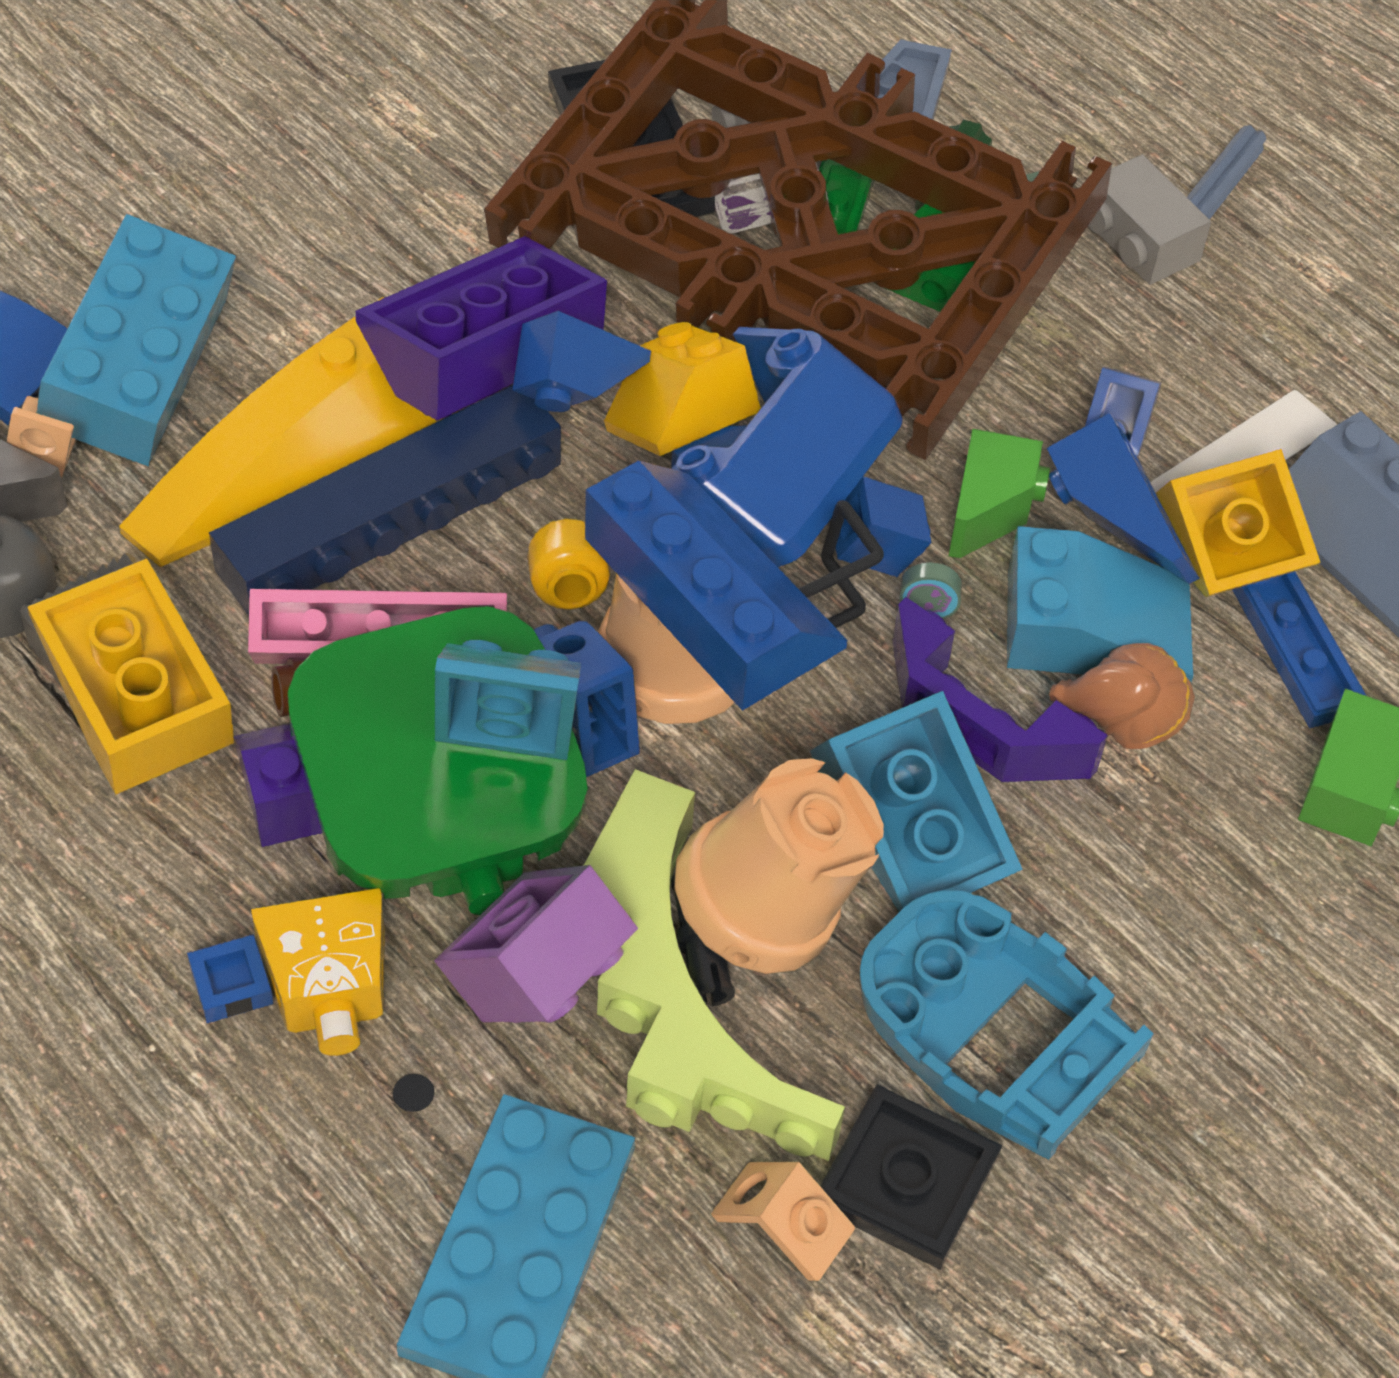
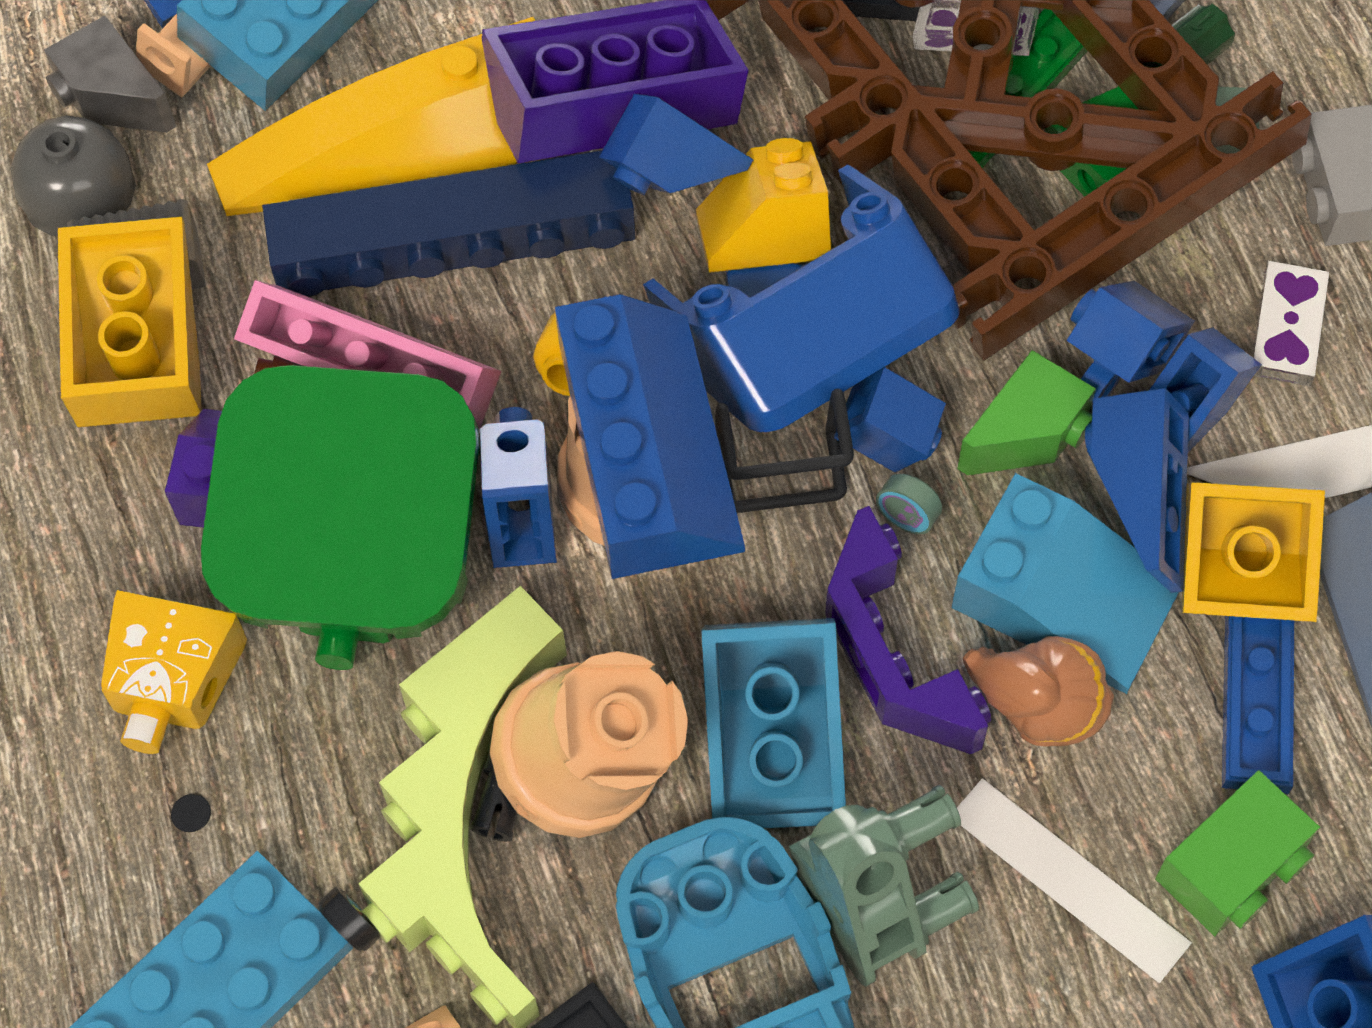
camera: 30 degrees right, 10 degrees up
(230, 978) = (76, 643): blue plate -> none
(505, 699) = (396, 478): dark azure slope -> none
(538, 946) = (340, 728): medium lavender brick -> none
(627, 1115) = (347, 919): none -> black tile
(1043, 387) = (1126, 334): none -> blue brick
(1087, 886) = (864, 885): none -> sand green piece
(1159, 347) = (1289, 322): none -> tile
(1229, 846) = (1072, 881): none -> white sticker

